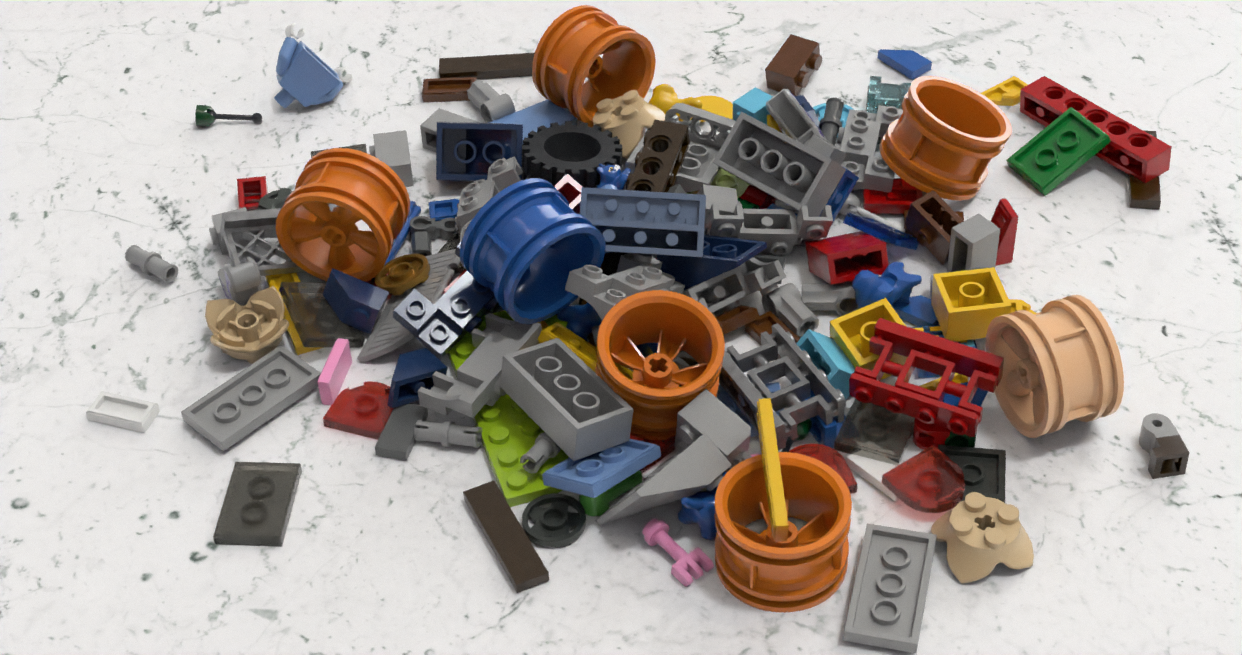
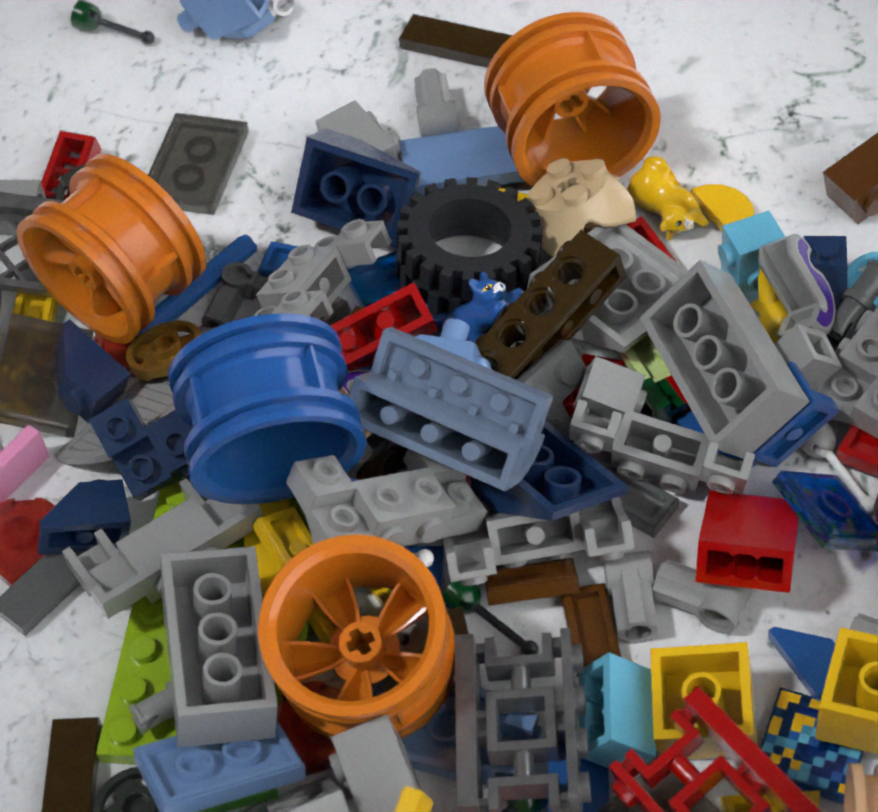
camera: 30 degrees right, 10 degrees up
(394, 151) = (262, 160): light grey brick -> none
(446, 89) = (397, 64): reddish brown tile -> none
(448, 433) = (86, 619): light grey pin -> none
(716, 122) = (655, 232): light grey beam -> none
(892, 285) = (767, 618): blue animal -> none

